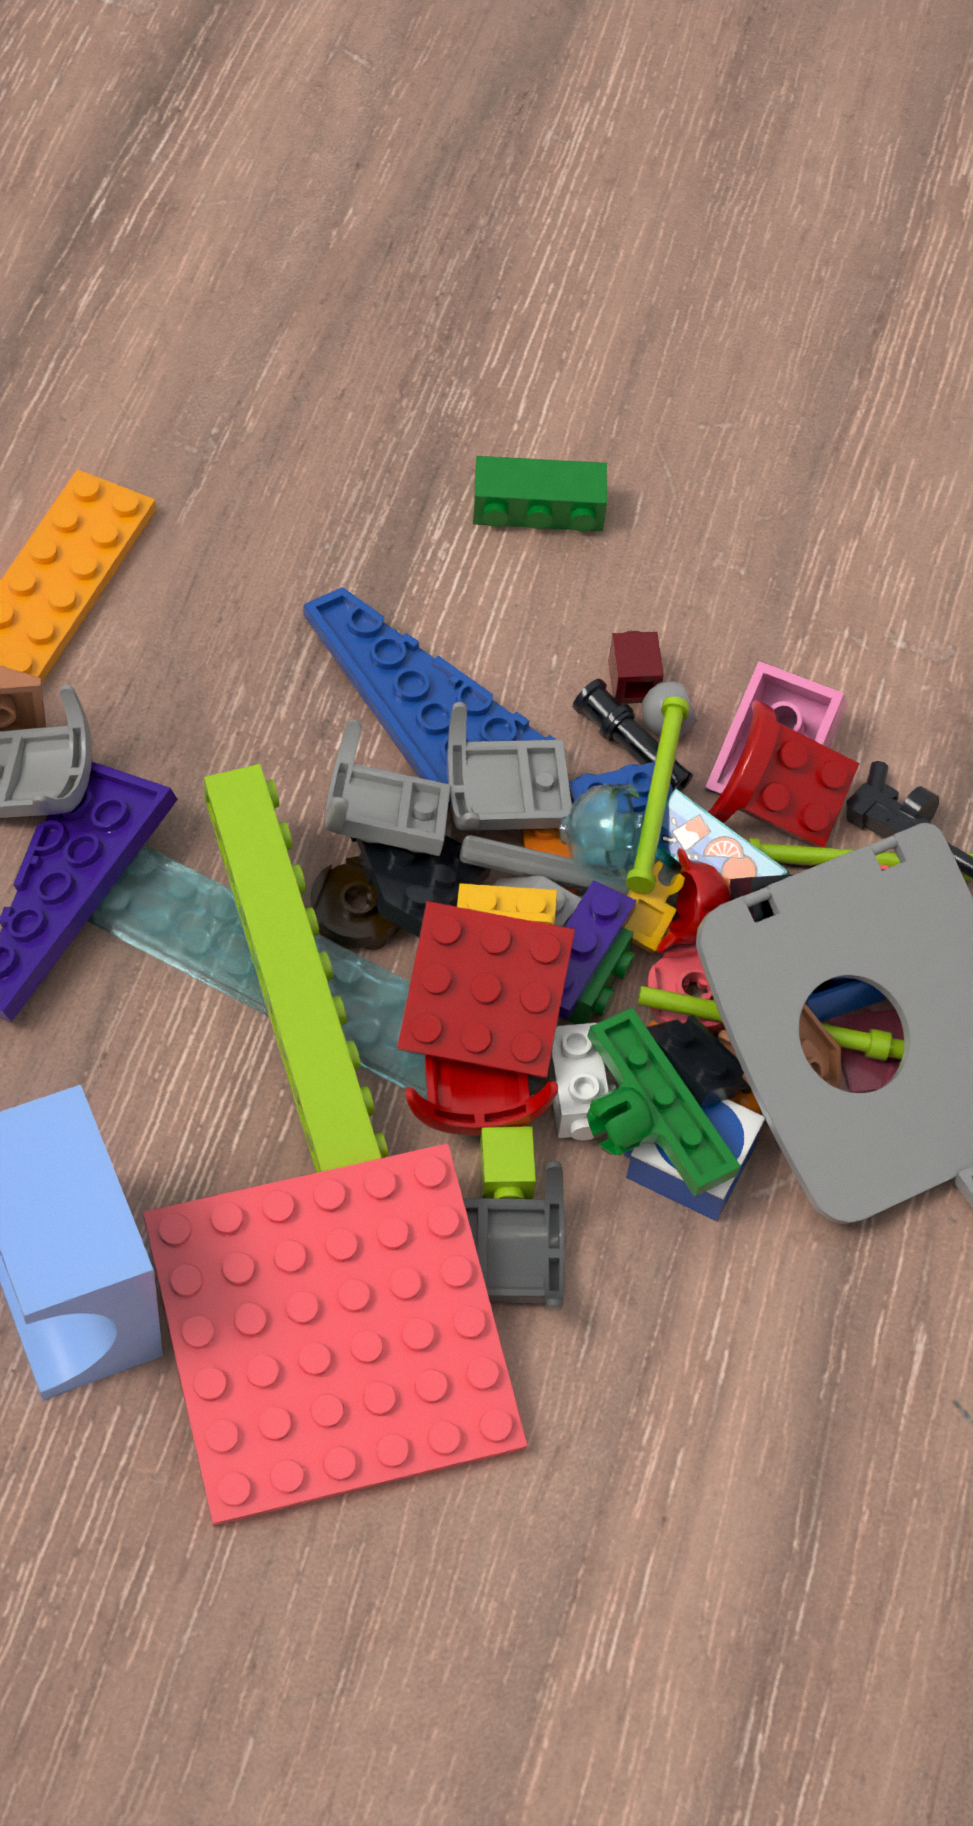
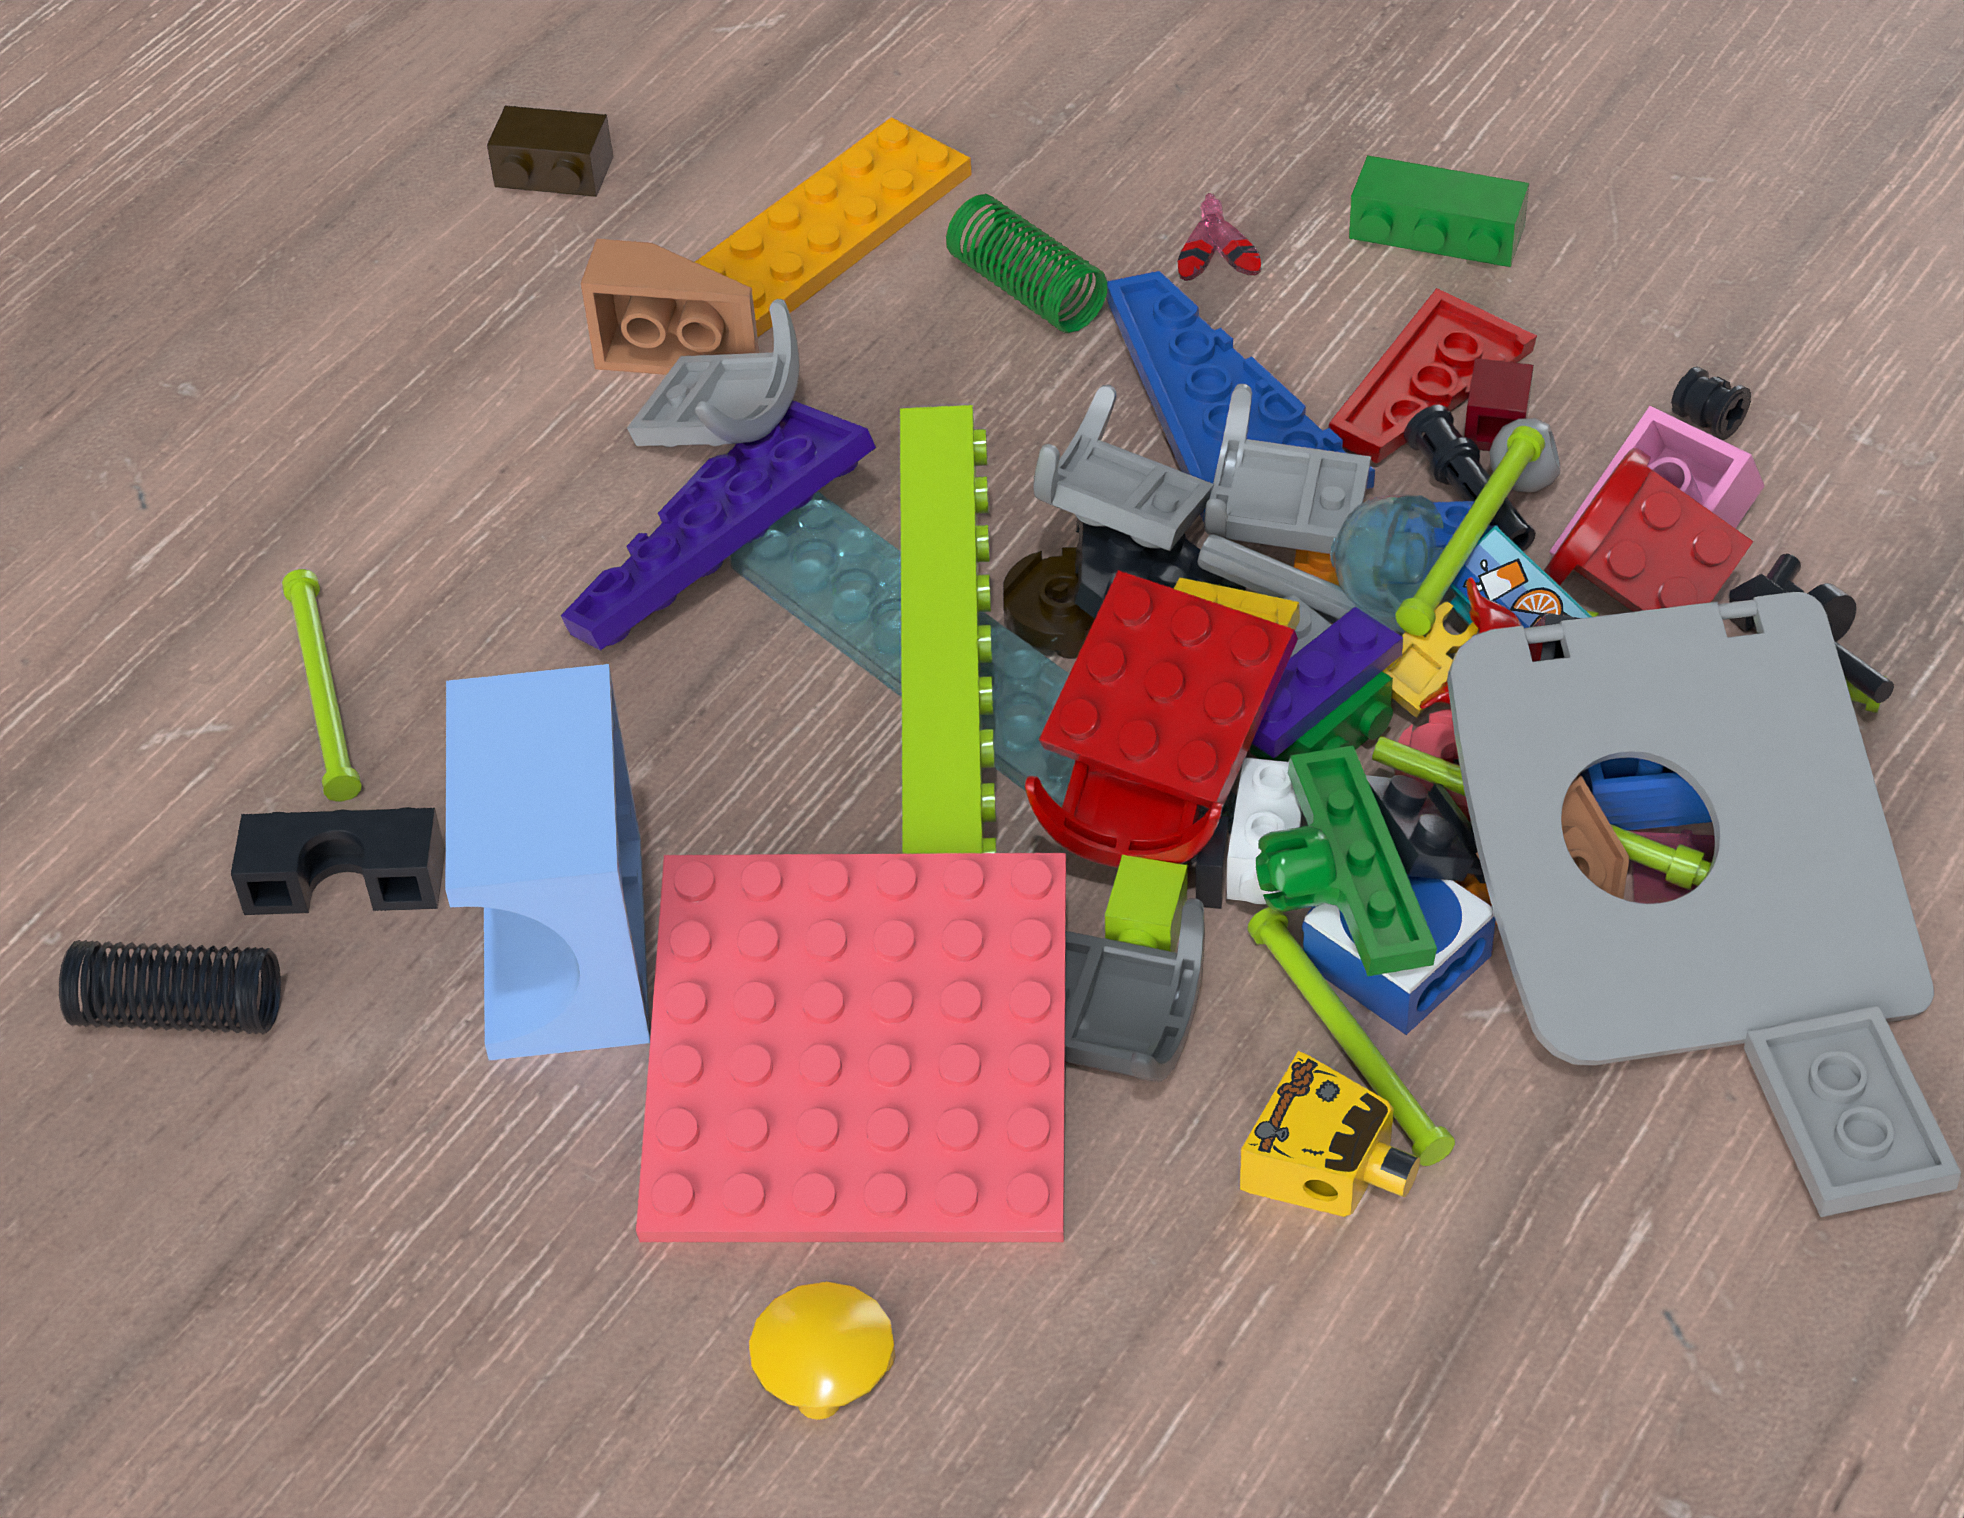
camera: 25 degrees right, 10 degrees down
(270, 633) = (992, 238): none -> green piece
(371, 540) = (1216, 234): none -> piece
(380, 1581) = (821, 1347): none -> yellow dish
(546, 1125) = (1212, 867): none -> black tile
(572, 644) = (1425, 368): none -> red wing
(681, 1234) = (1429, 1141): none -> lime bar
(693, 1329) = (1323, 1143): none -> yellow torso
(788, 635) = (1711, 402): none -> black bush

